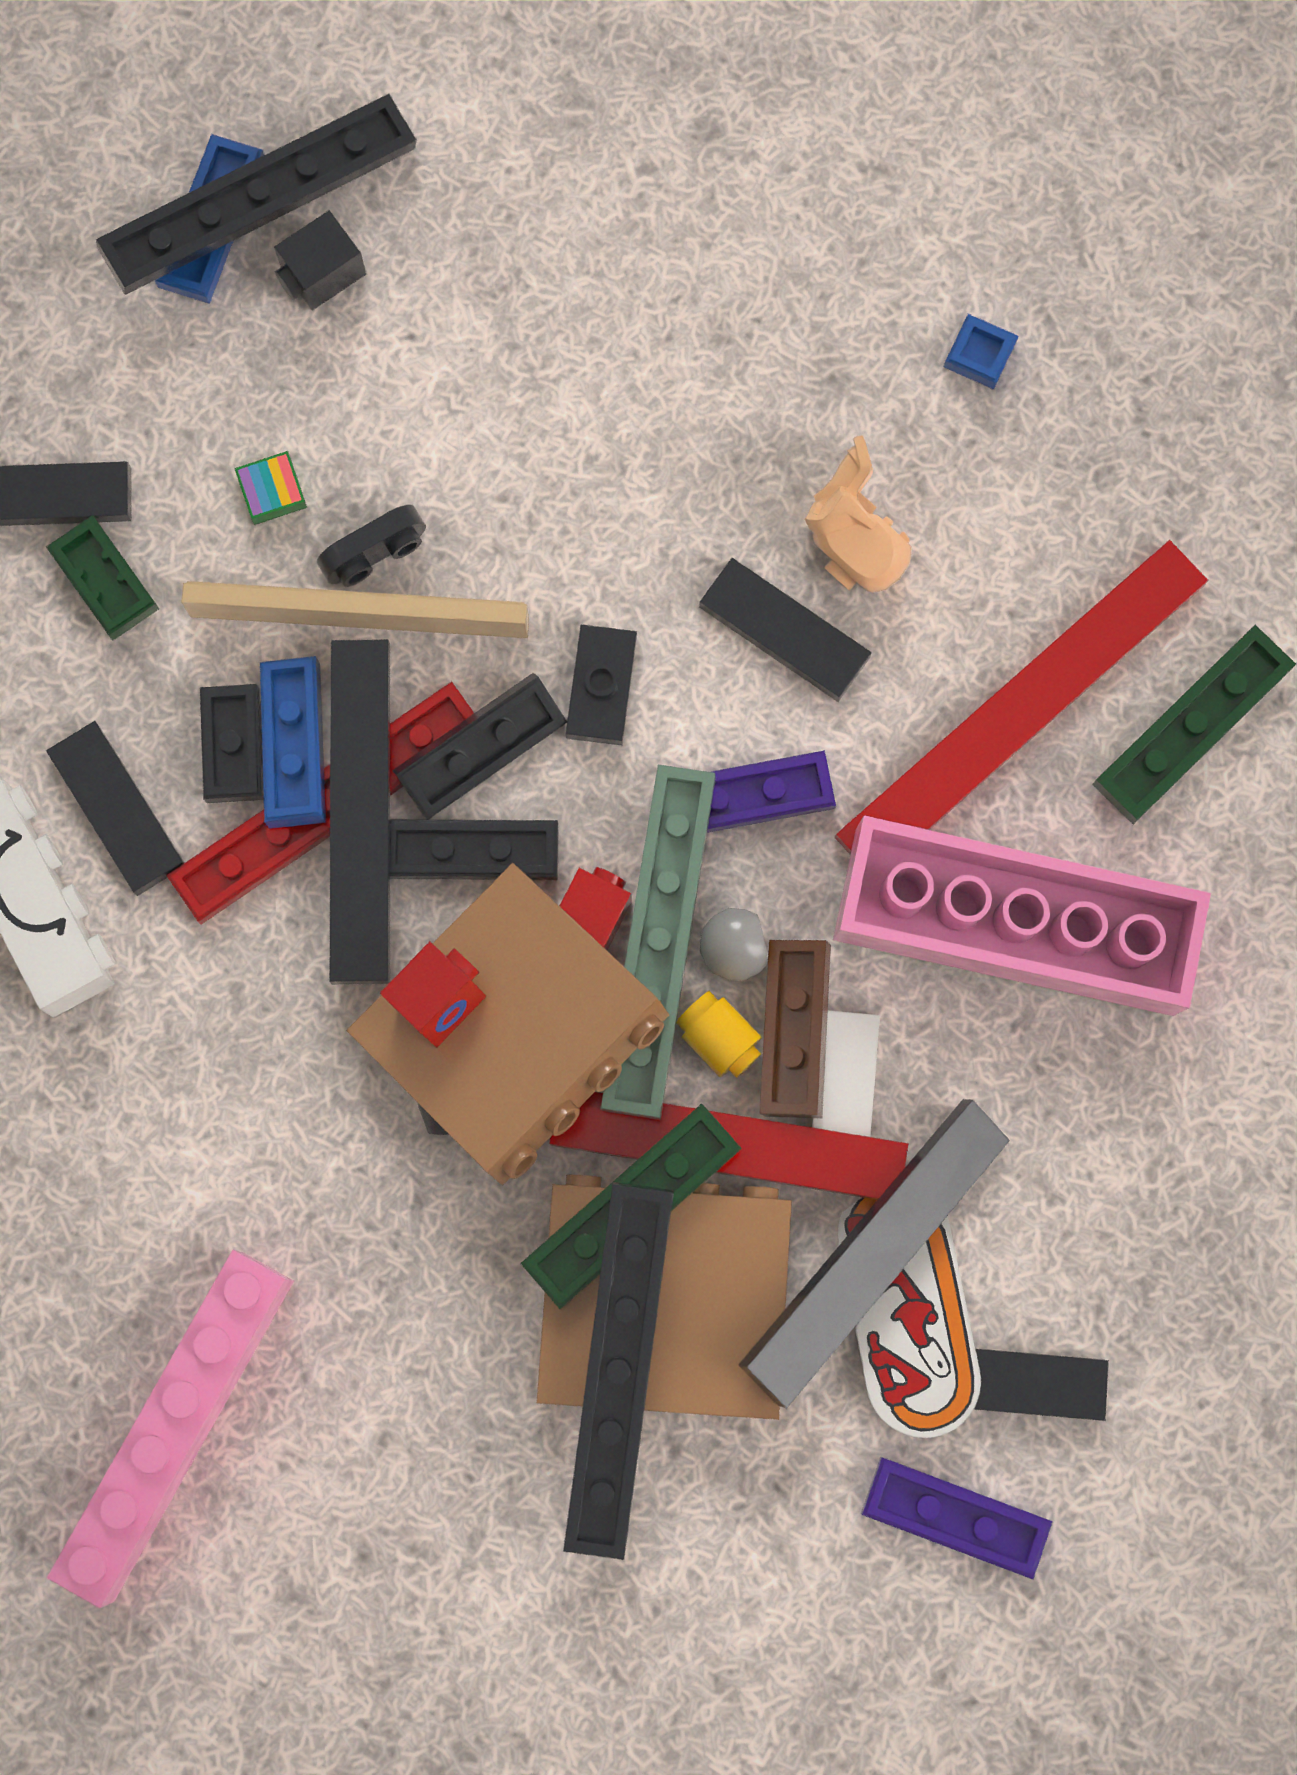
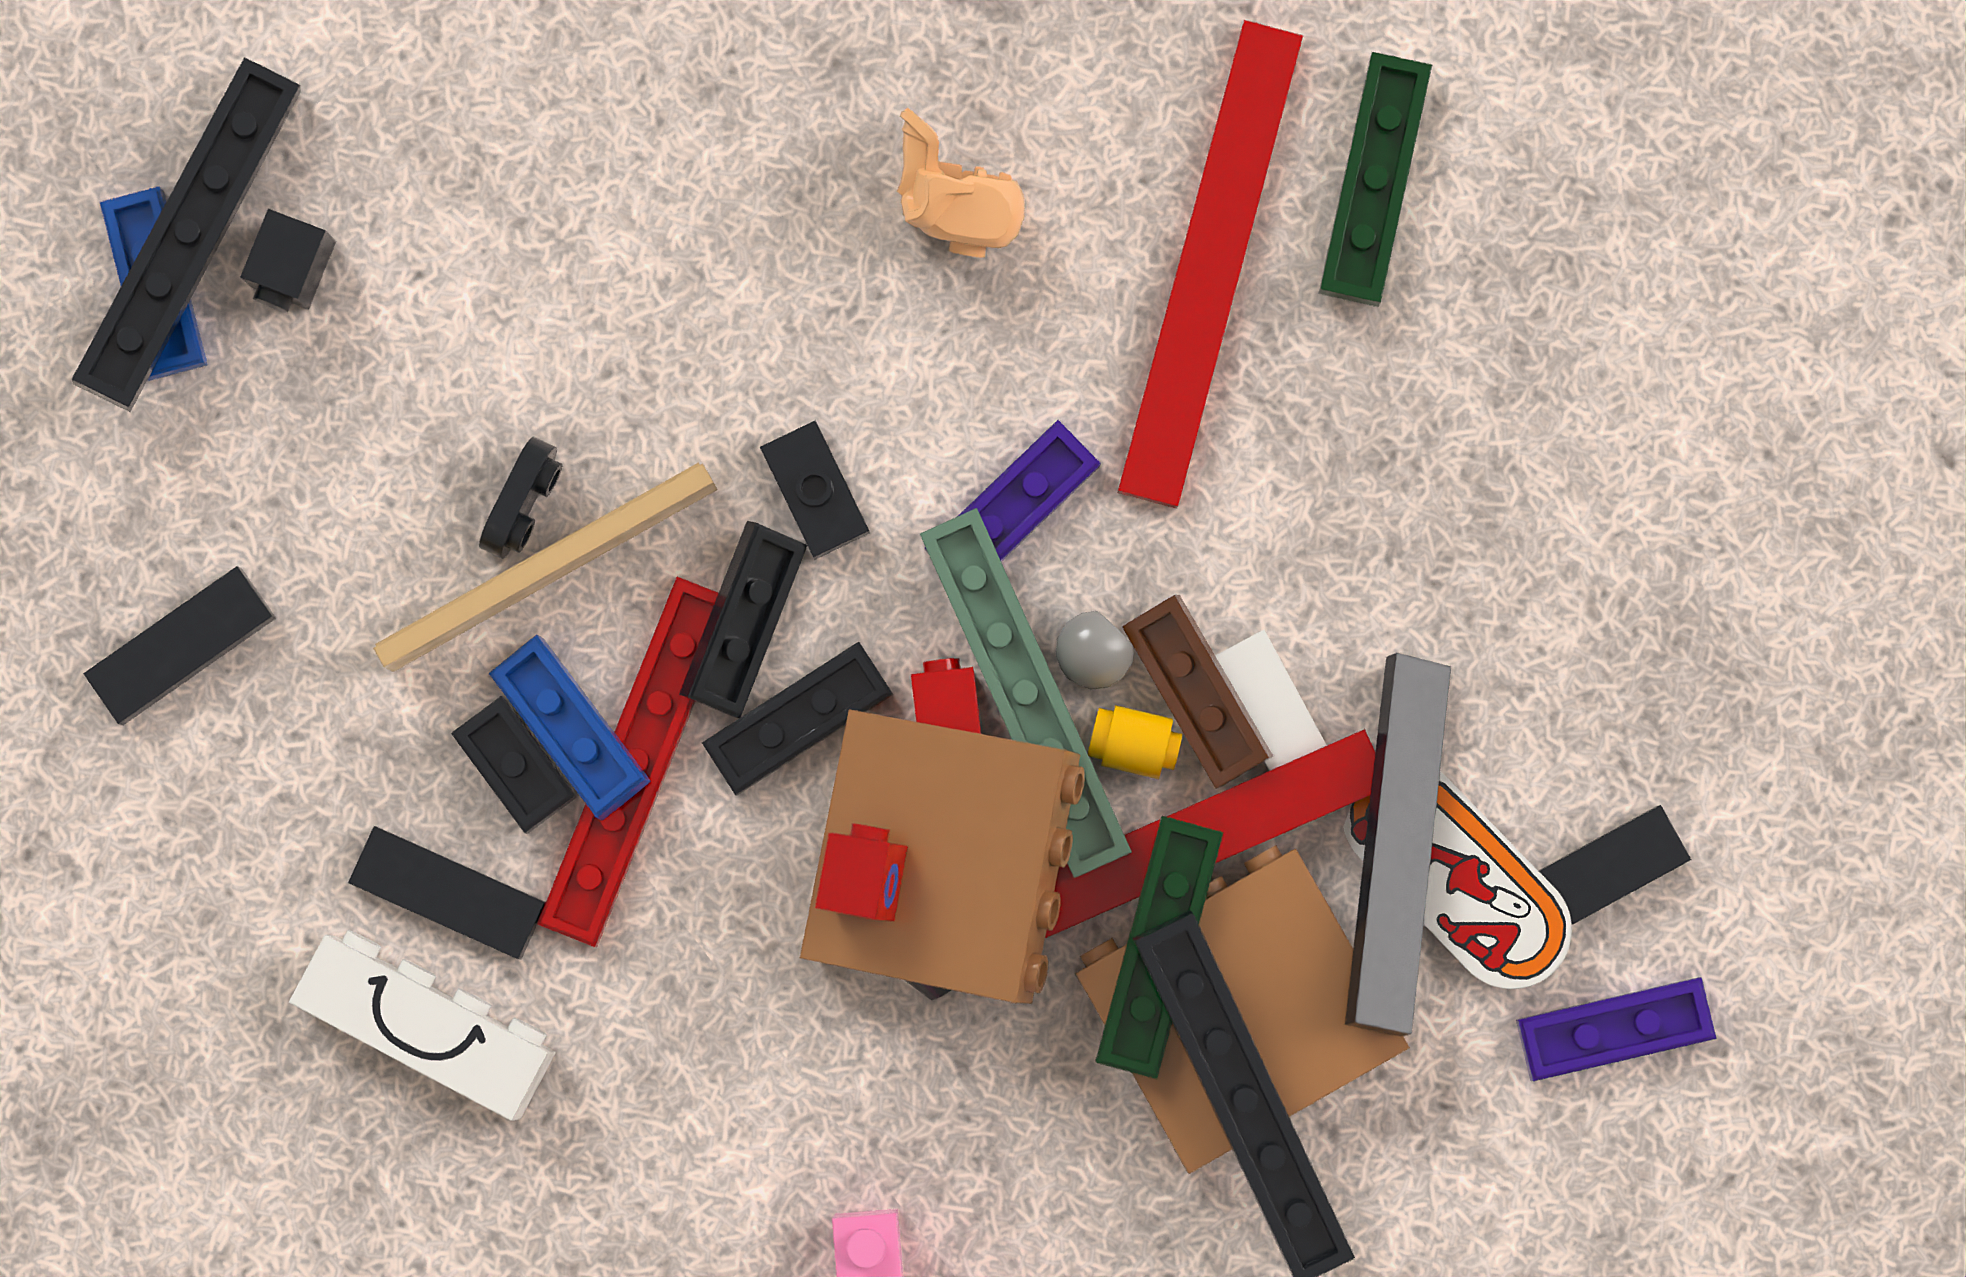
camera: 30 degrees left, 5 degrees up
(102, 578) = (289, 689): dark green plate -> none
(270, 488) = (386, 503): tile -> none
(360, 812) = (675, 750): black tile -> none
(785, 629) = (948, 330): black tile -> none
(1022, 916) = (1334, 460): bright pink brick -> none

